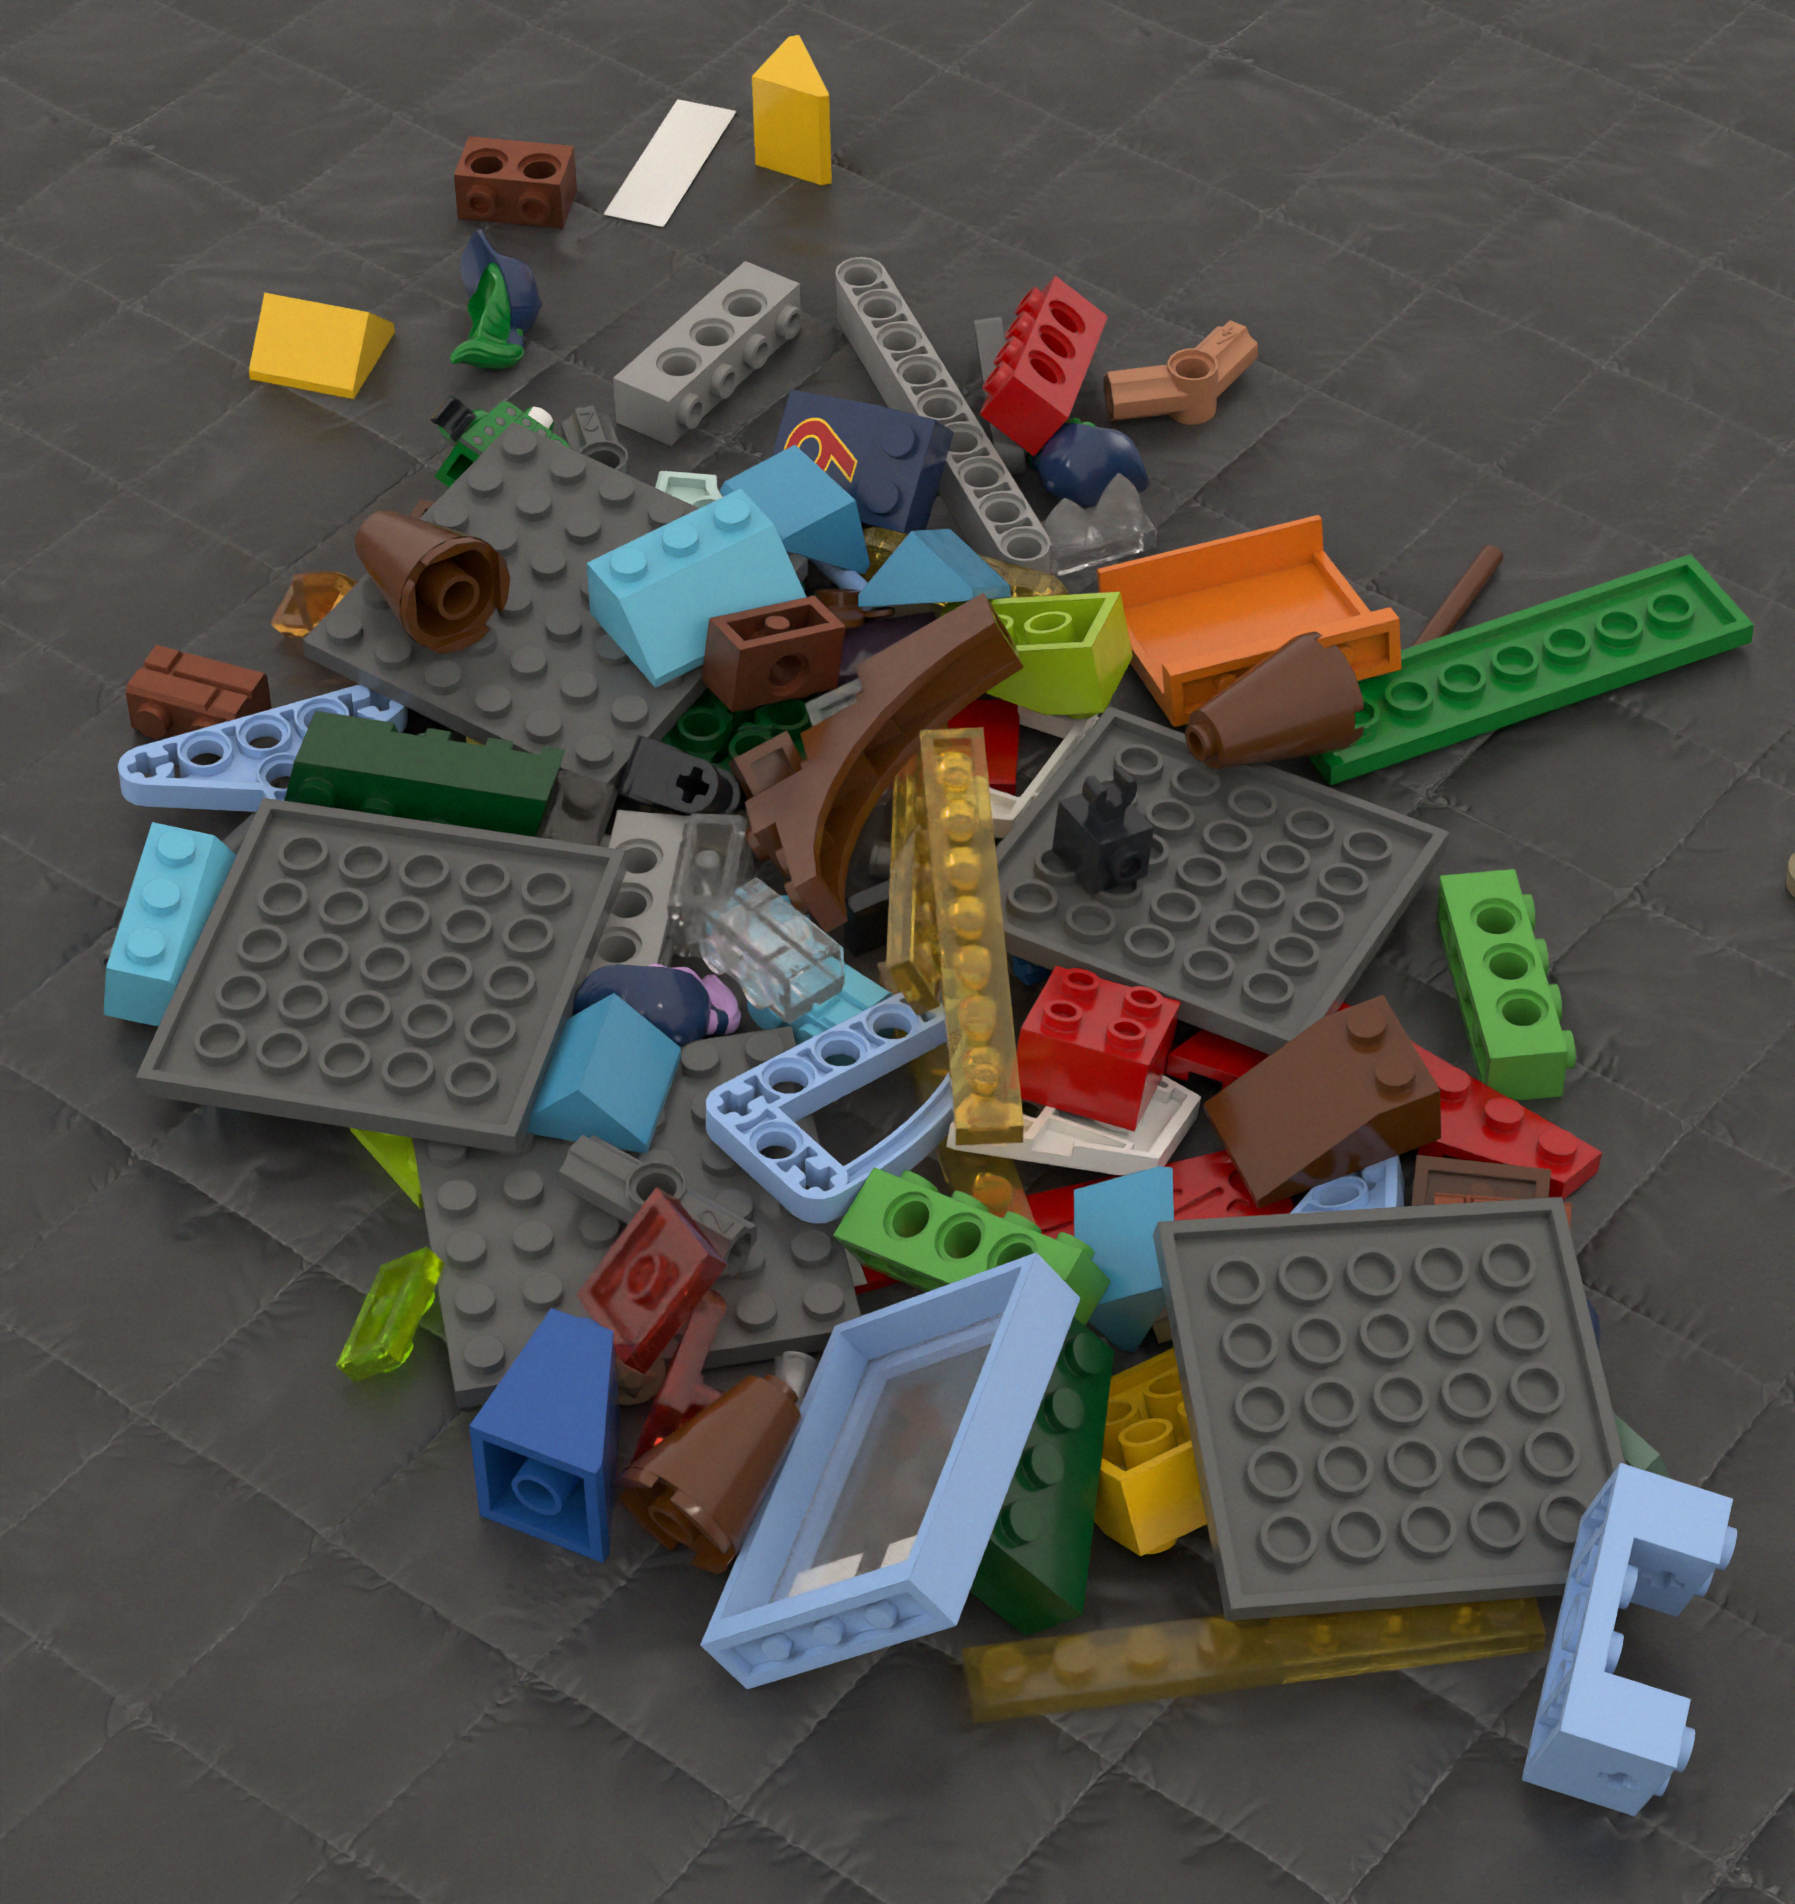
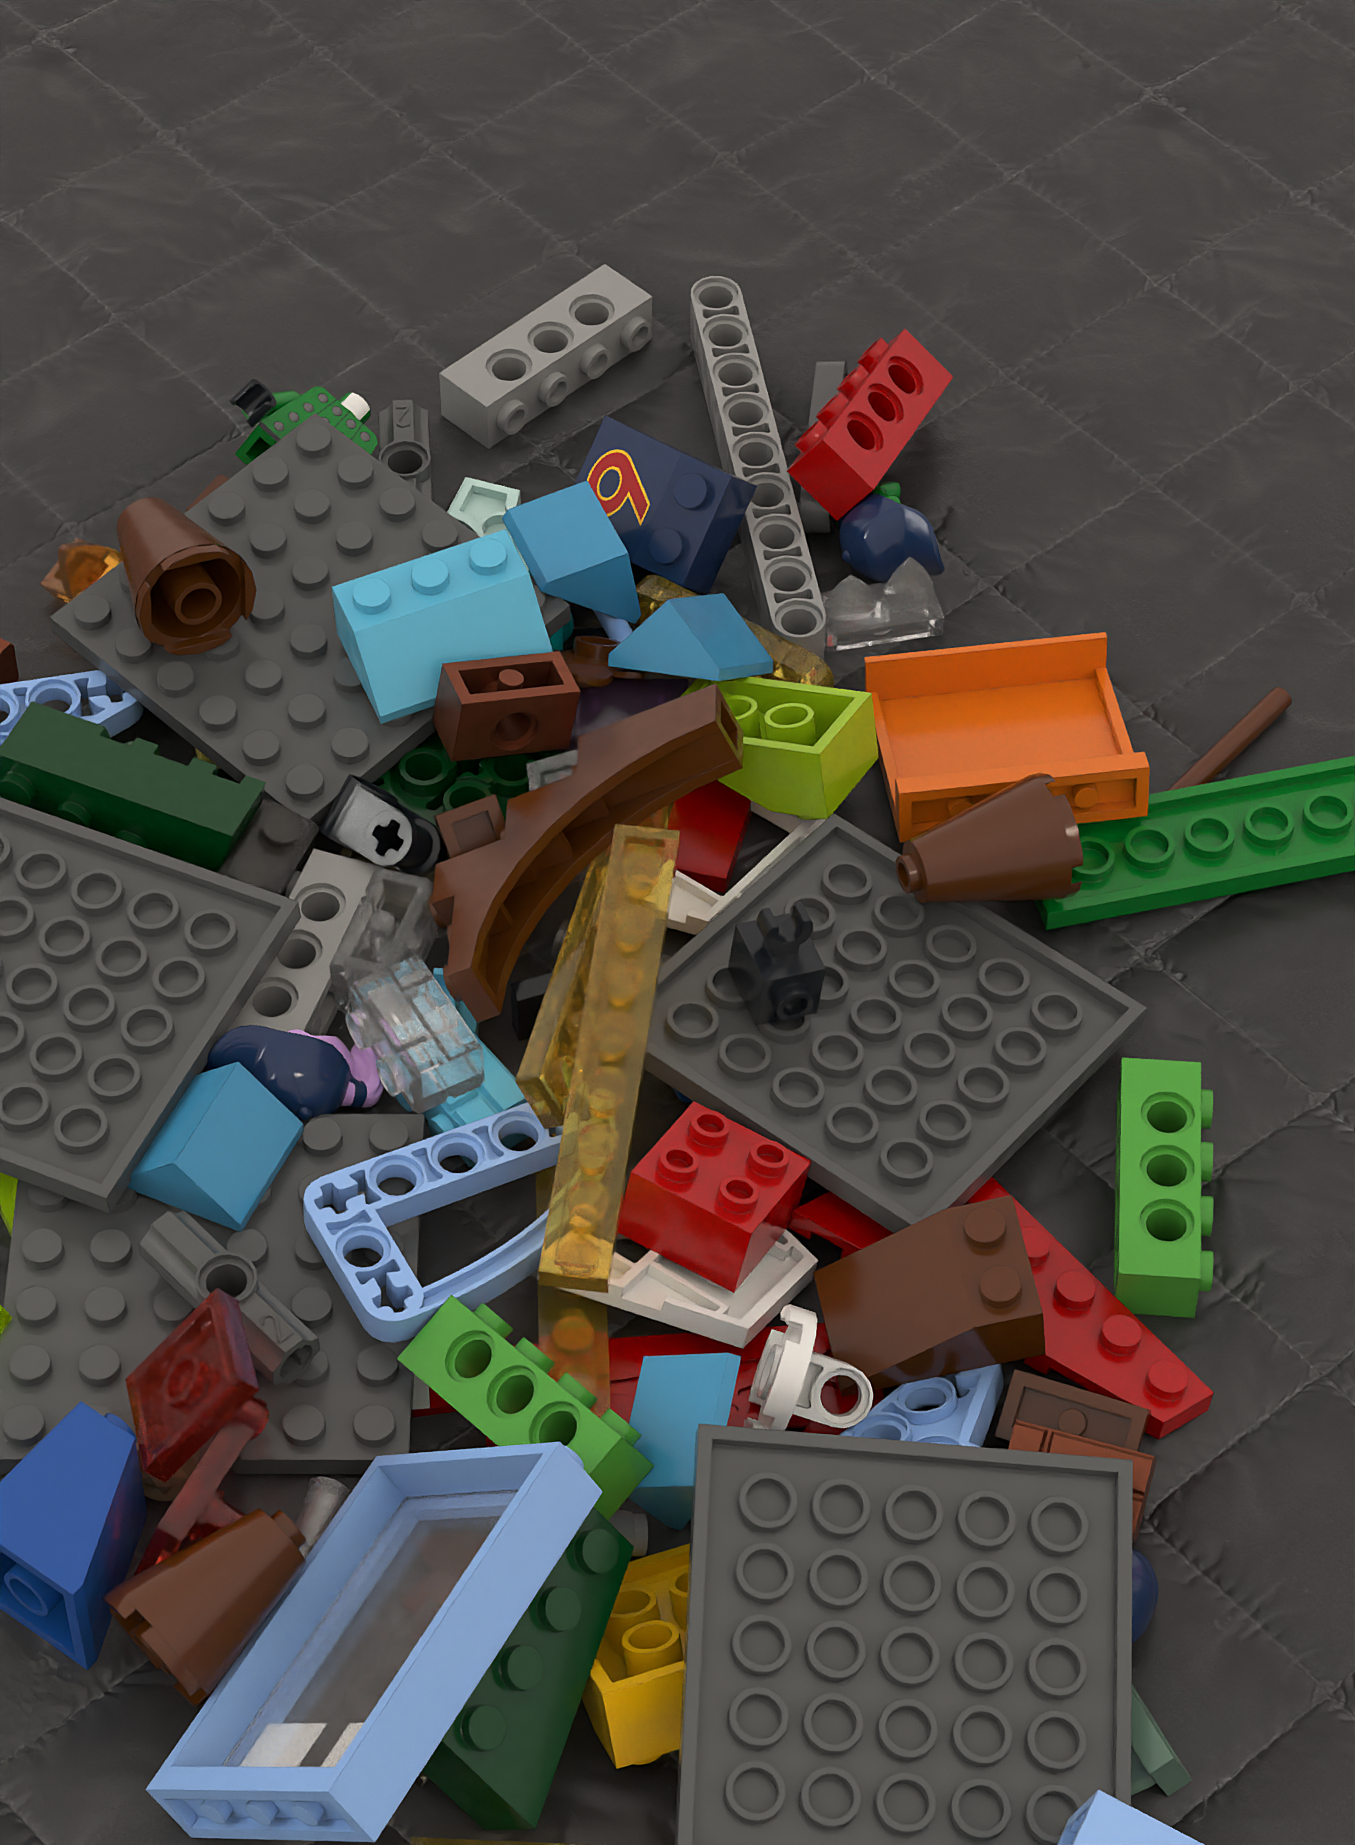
camera: 10 degrees right, 5 degrees up
(317, 345) = (168, 290): yellow slope -> none
(501, 306) = (357, 277): hair -> none
(515, 182) = (408, 142): copper brick -> none
(670, 163) = (570, 140): white sticker -> none
(792, 115) = (692, 109): yellow slope -> none
(1187, 383) = (1020, 457): nougat piece -> none
(1214, 1182) = (793, 1375): none -> white tile

